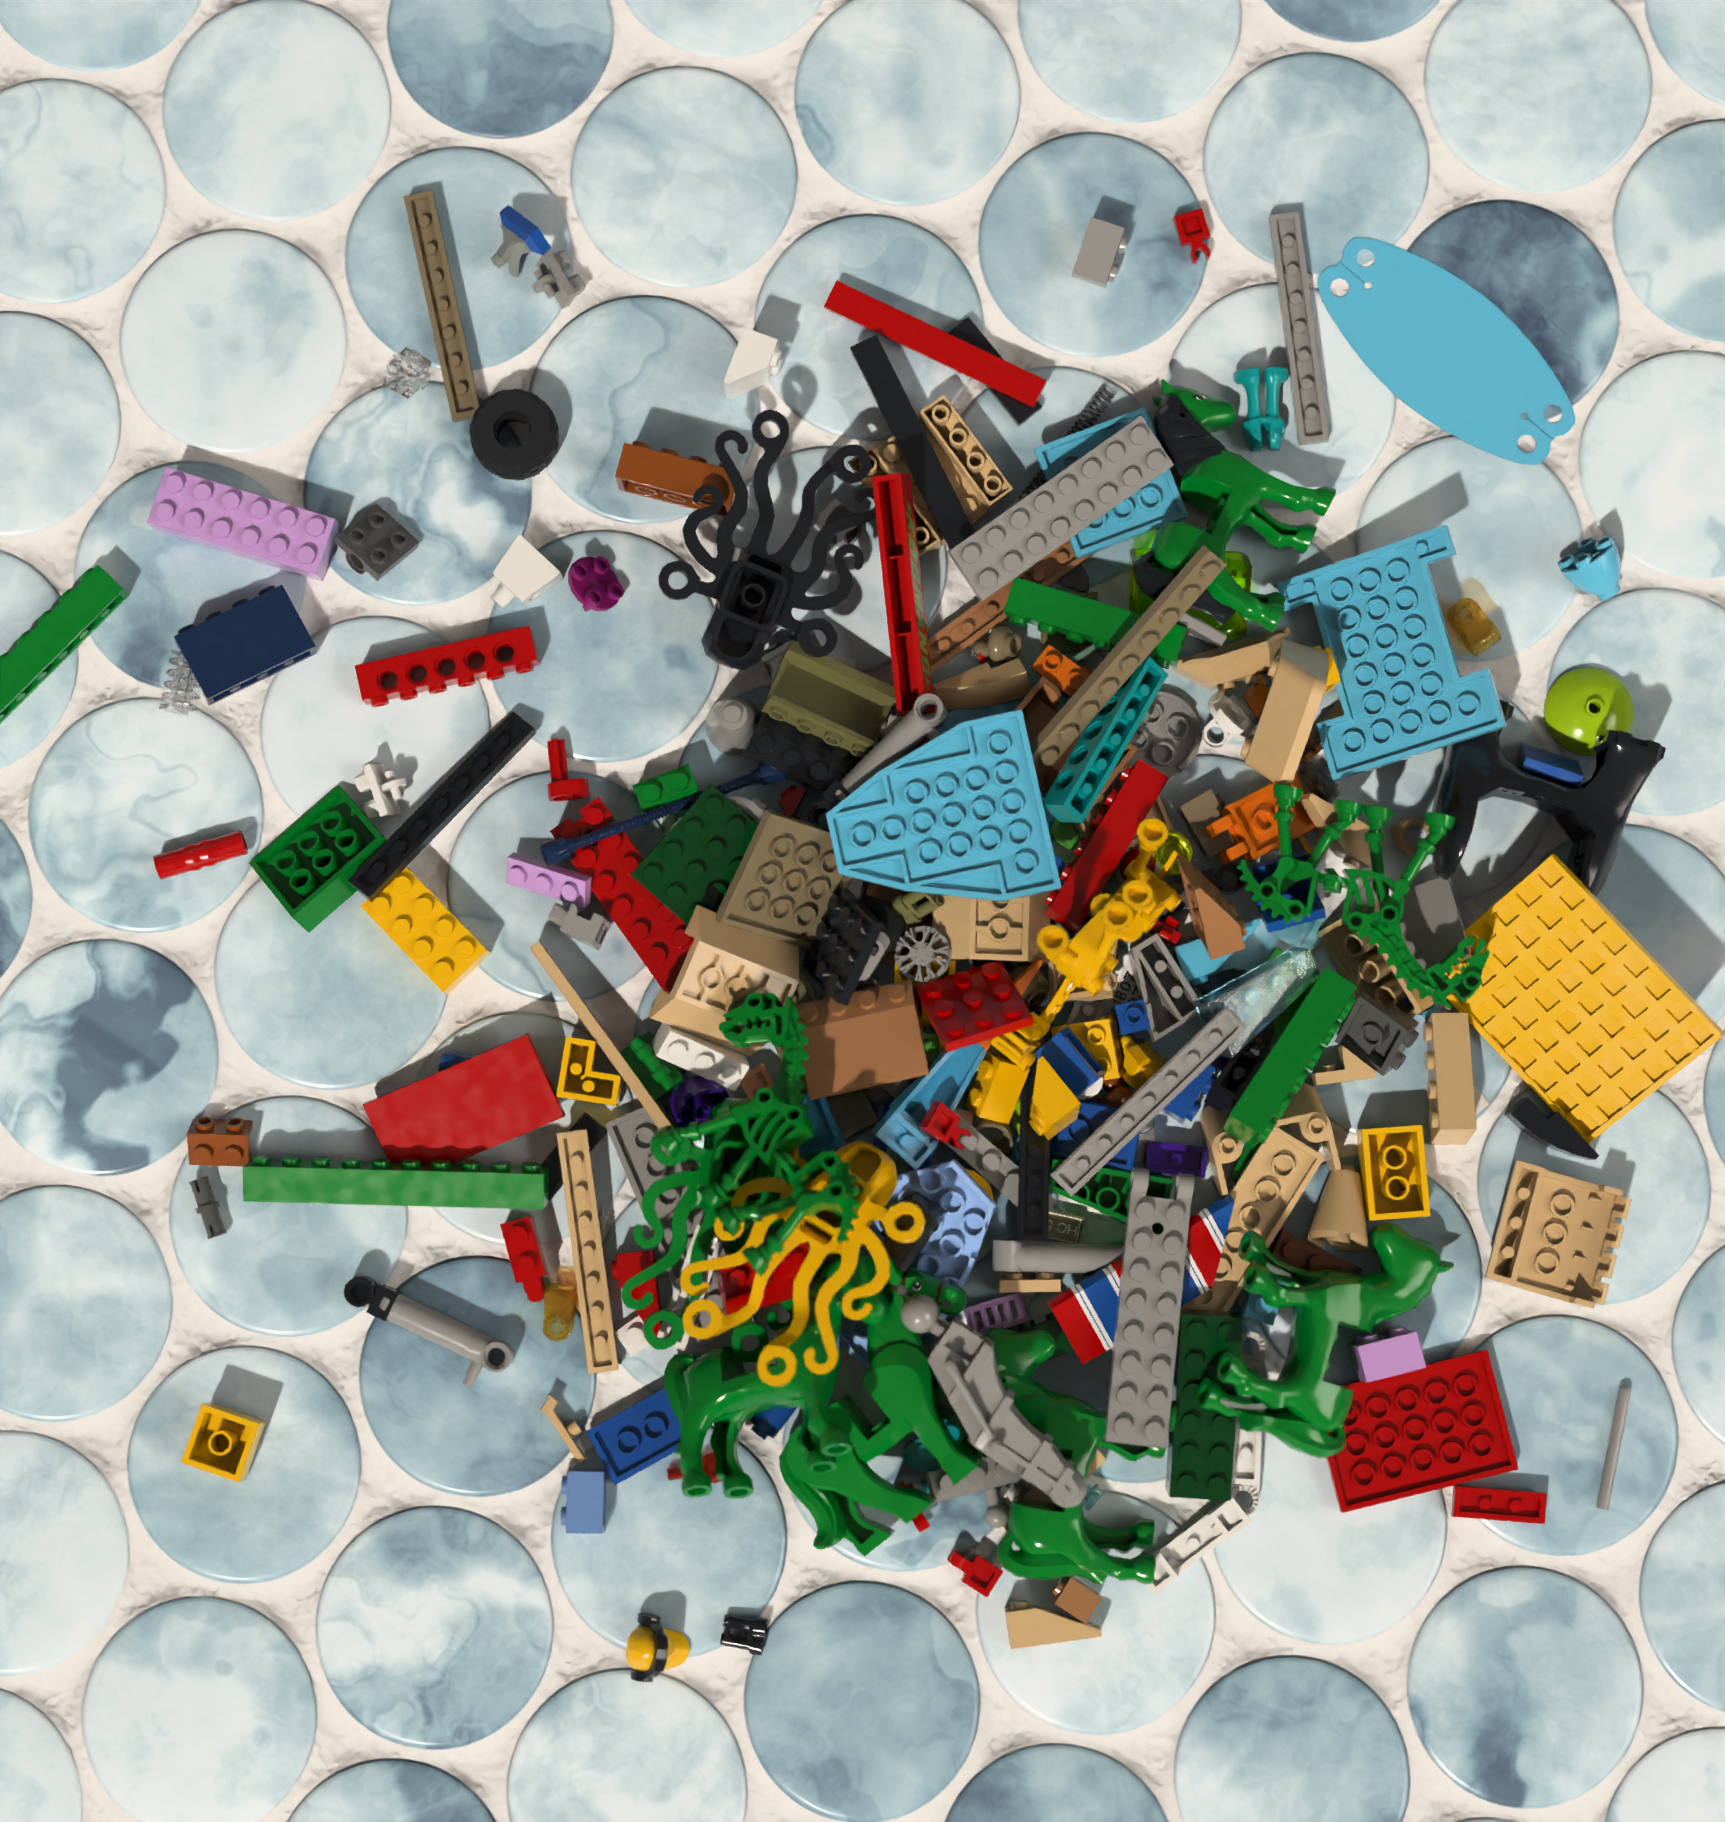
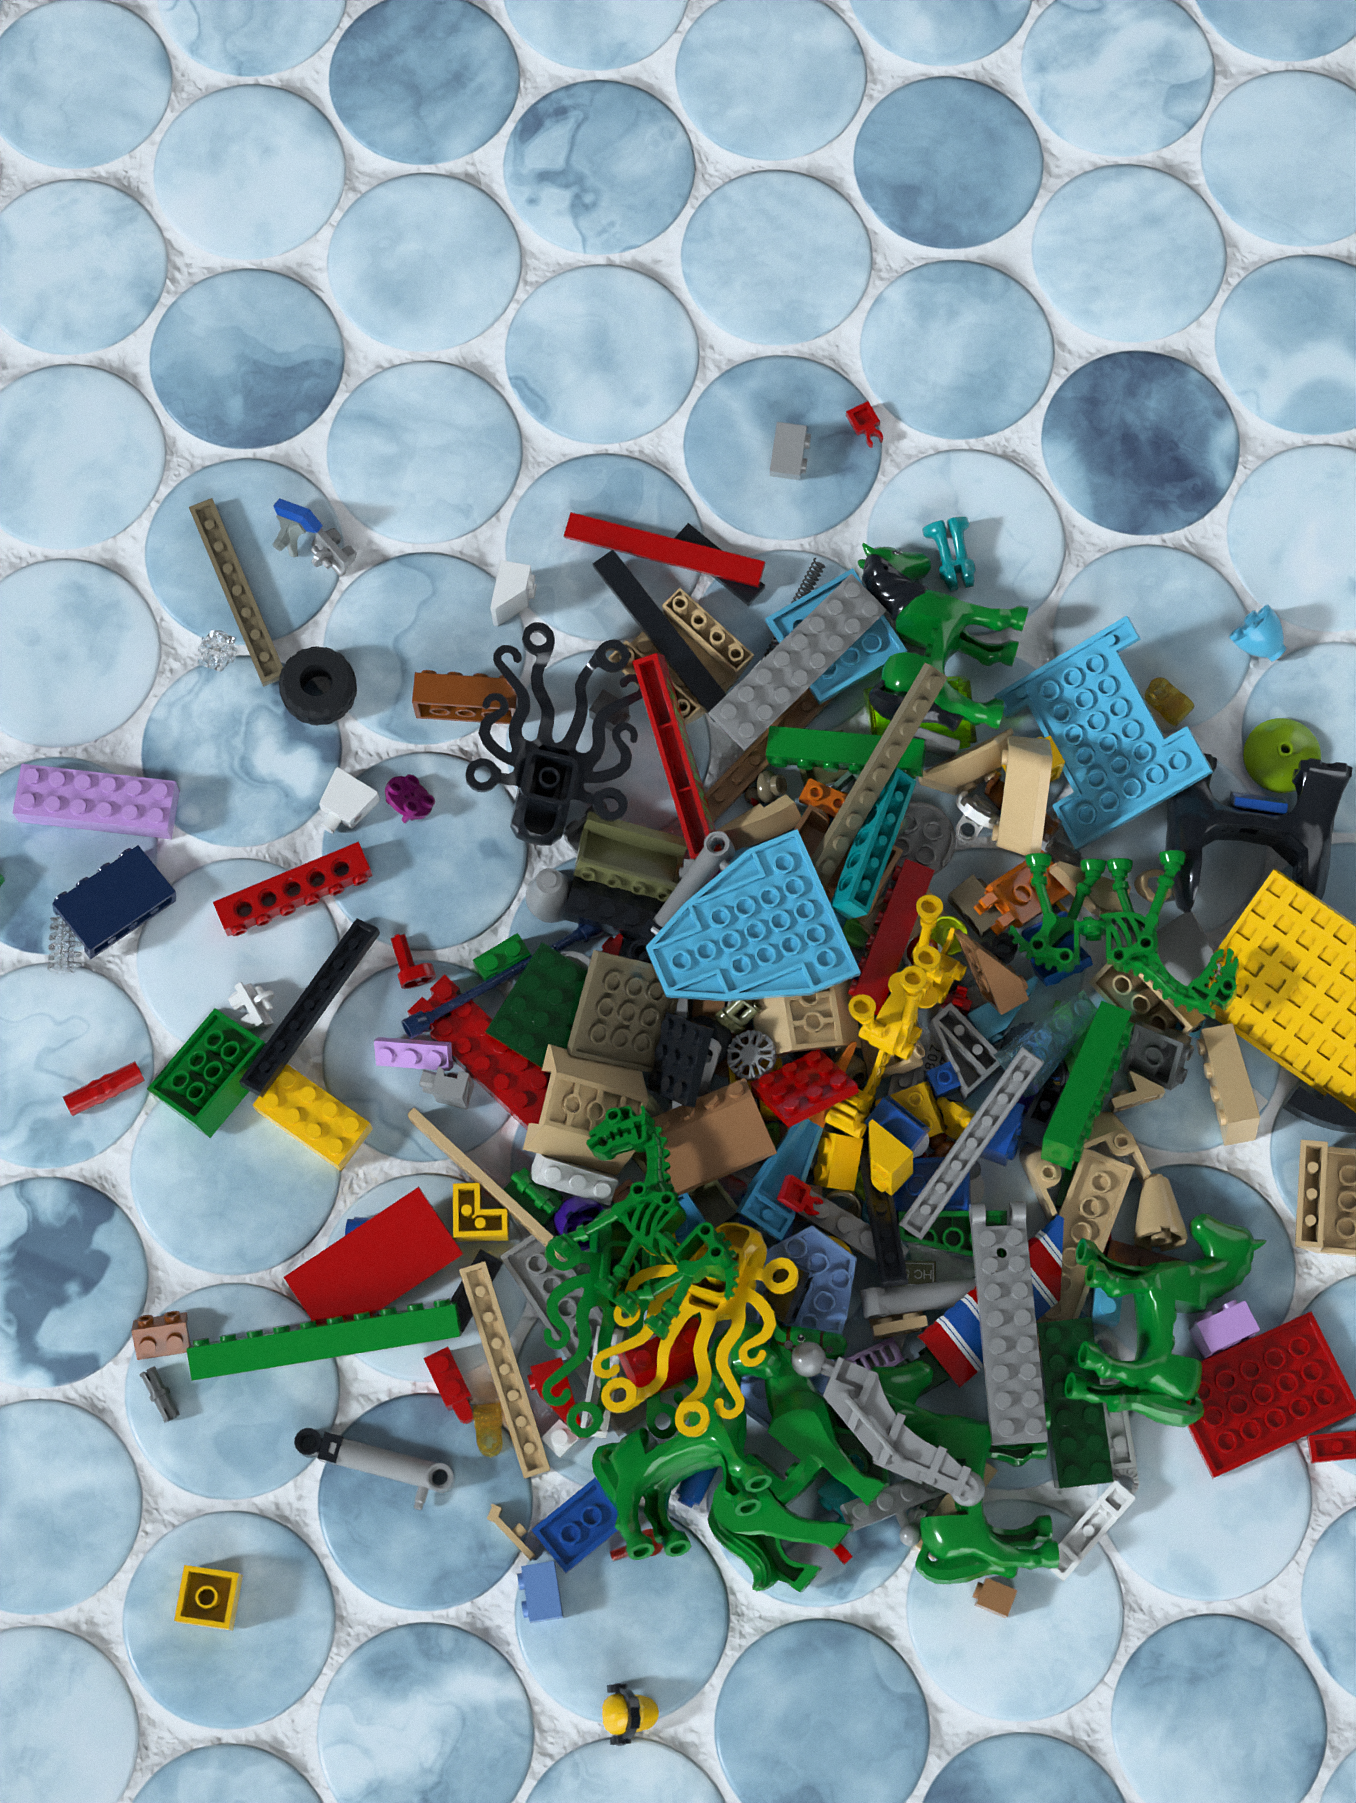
camera: 10 degrees left, 10 degrees down
(375, 543) = (213, 797): dark grey plate -> none
(756, 1633) = (715, 1689): black piece -> none
(979, 1572) = (904, 1591): red plate -> none
(1038, 1626) = (966, 1627): tan slope -> none
(1076, 580) = (822, 722): dark grey tile -> none
(1092, 1496) = (990, 1505): clear light blue plate -> none
(1175, 1158) = (999, 1195): dark purple plate -> none
(1298, 328) = (970, 484): light grey plate -> none
(1393, 1172) = (1197, 1171): yellow brick -> none
(1446, 351) = (1098, 481): medium azure piece -> none

